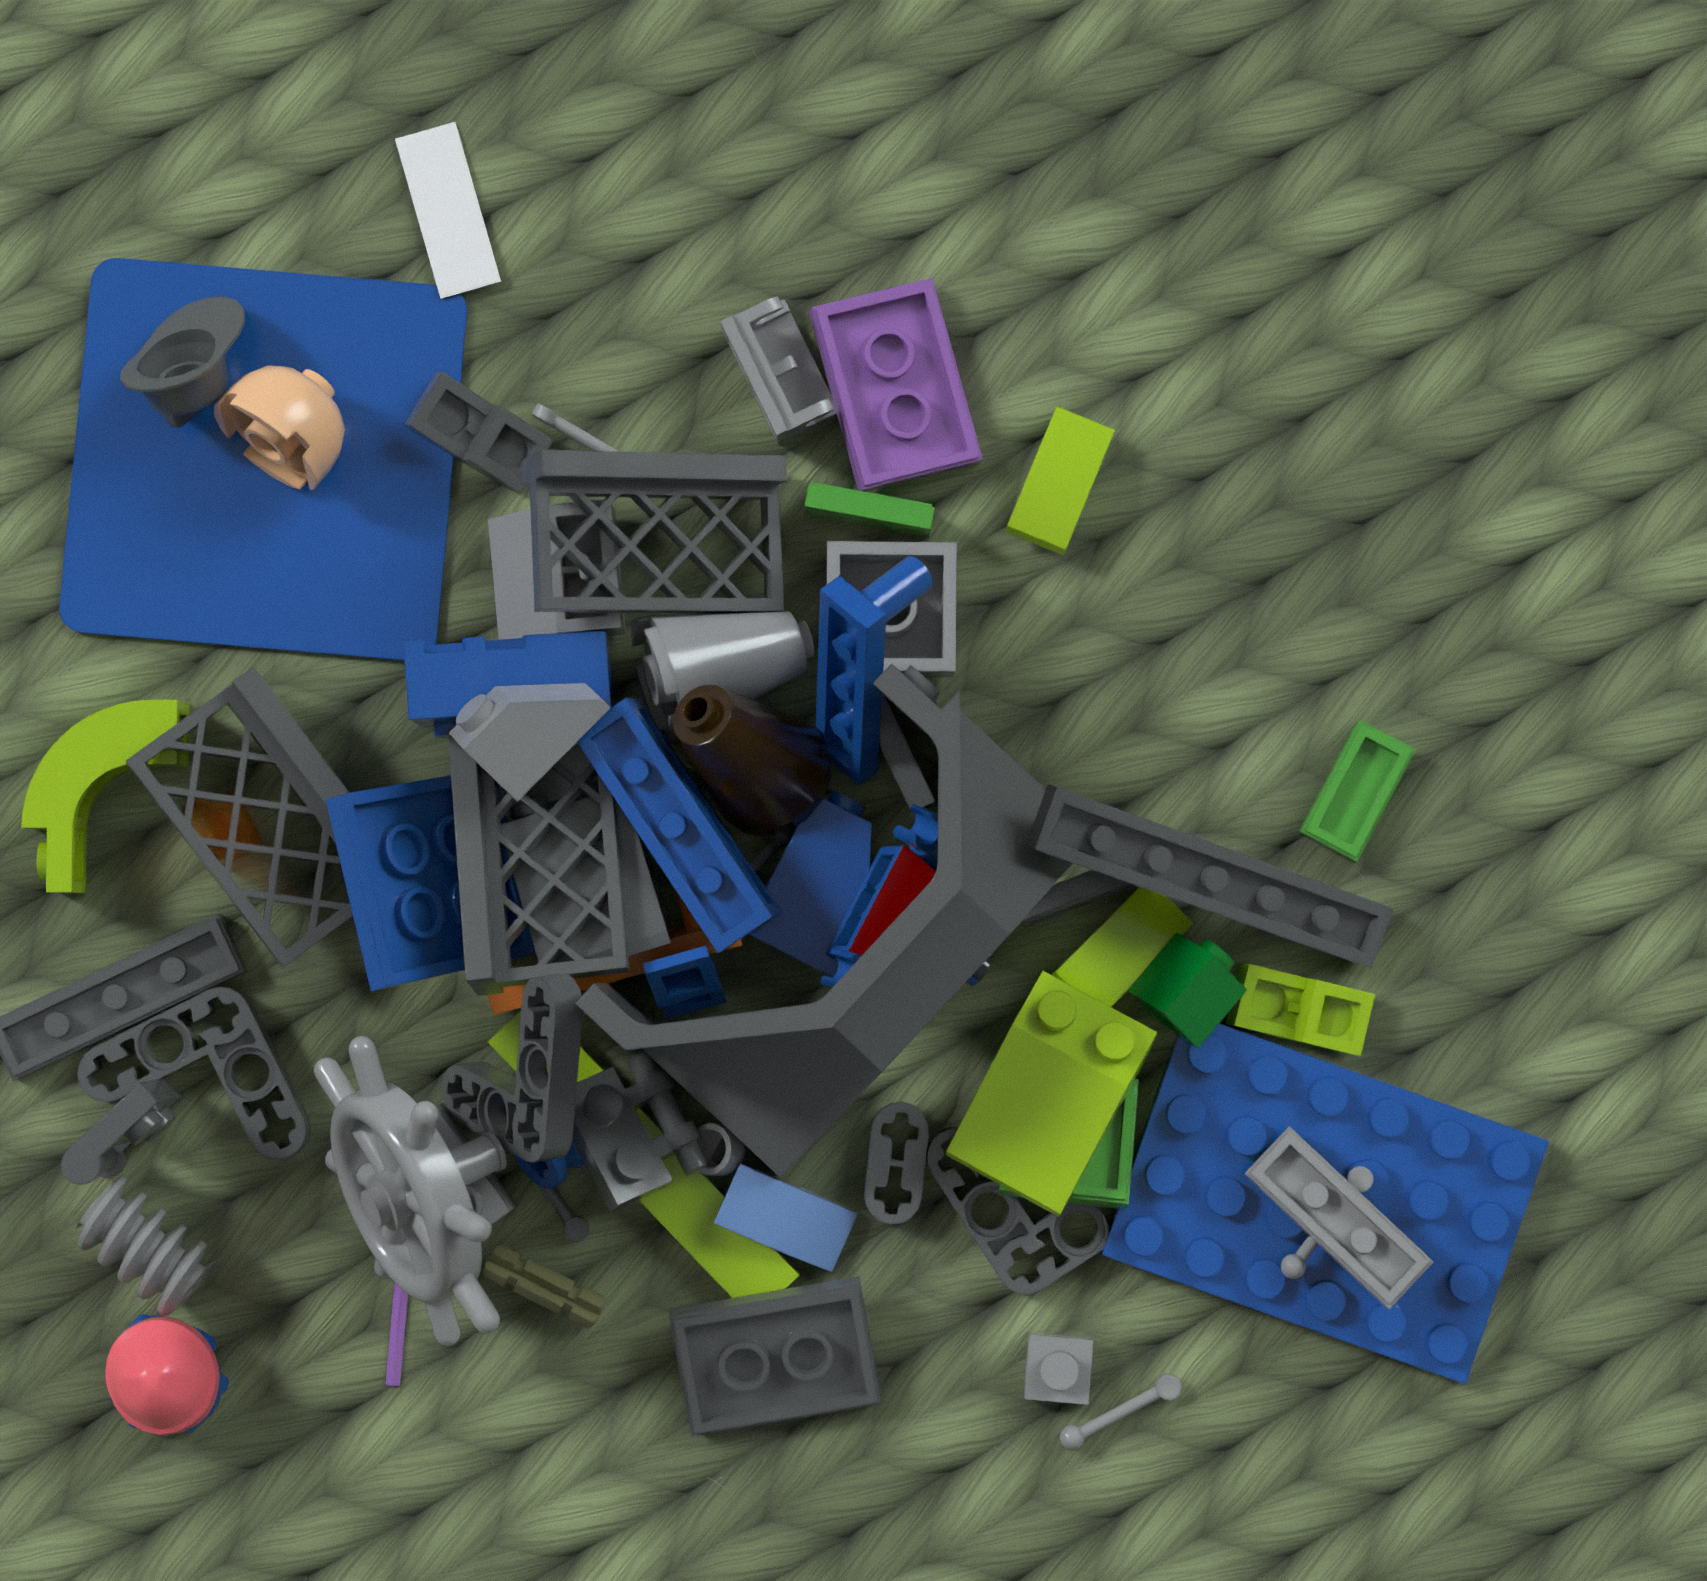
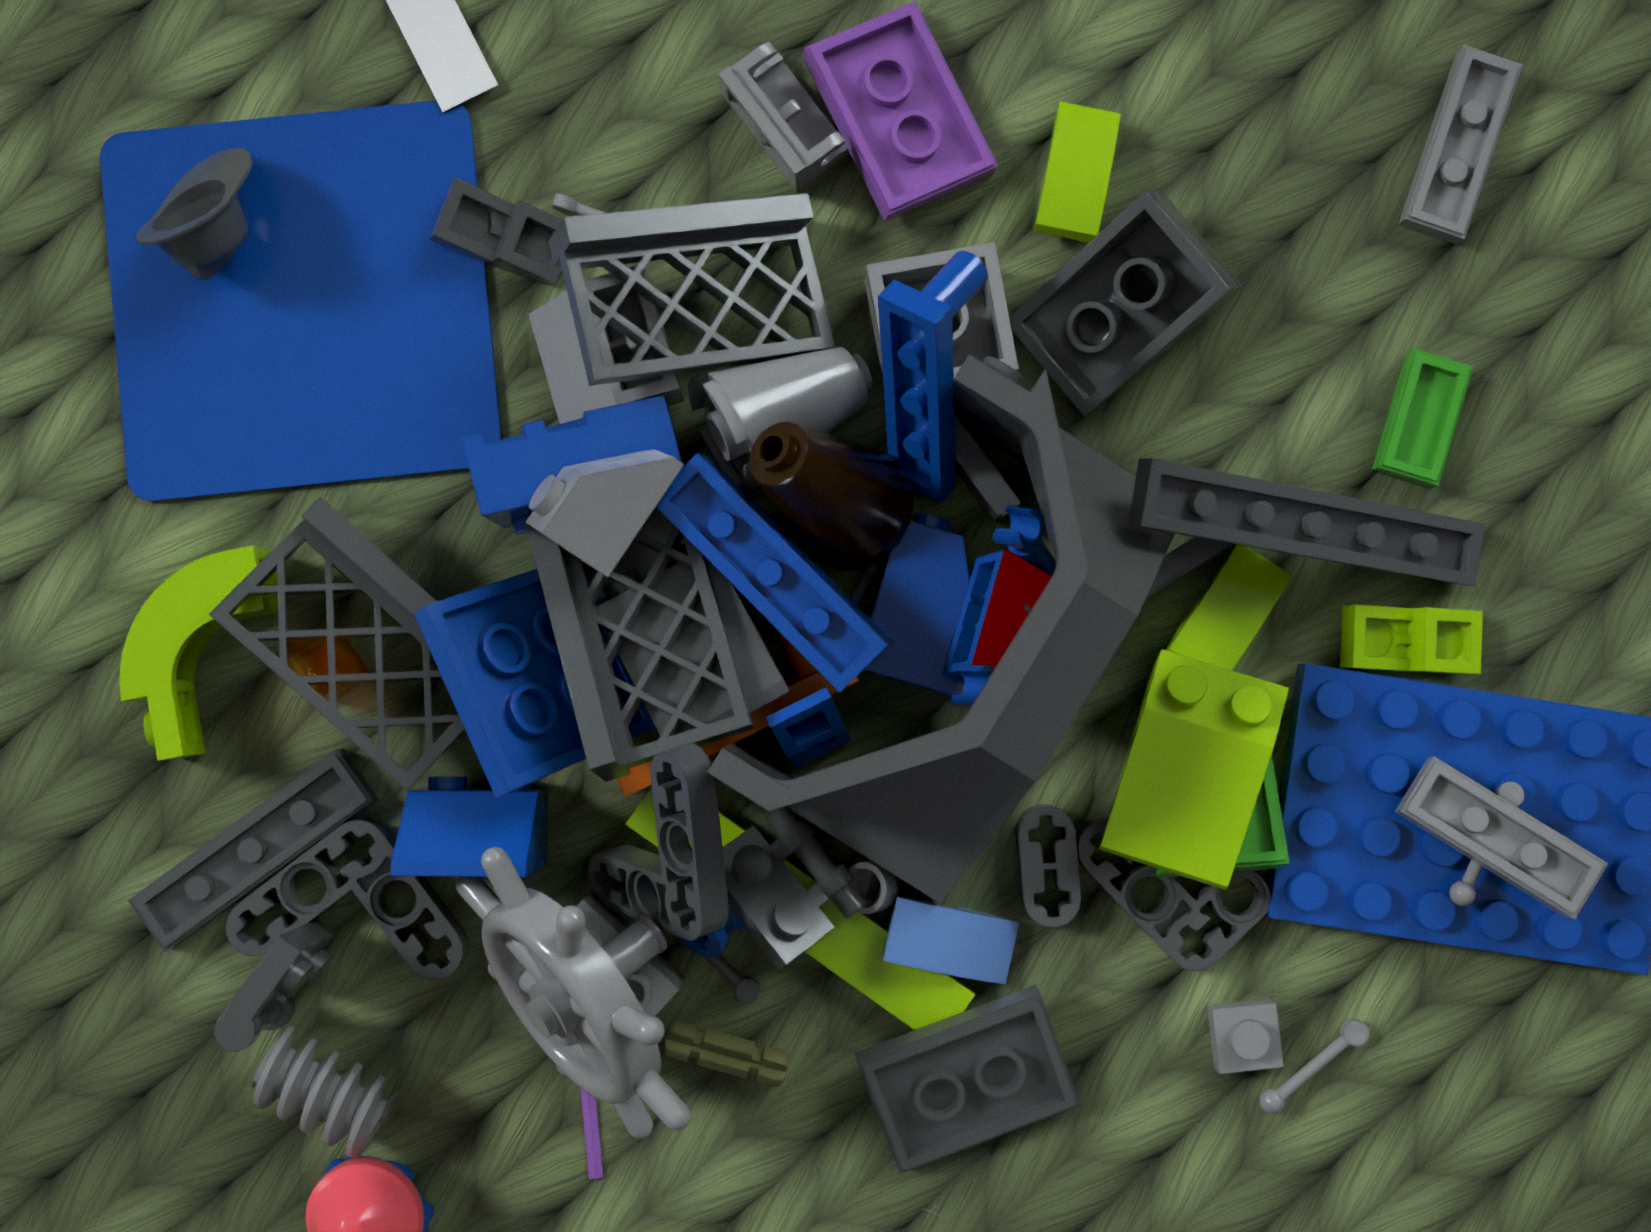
camera: 15 degrees left, 0 degrees up
(287, 422) = (310, 252): light nougat cylinder -> none
(321, 1013) = (452, 825): none -> blue slope
(869, 509) = (898, 233): bright green tile -> none
(1080, 619) = (1123, 301): none -> dark grey slope
(1188, 988) = (1304, 639): green brick -> none
(1450, 524) = (1460, 144): none -> light grey tile

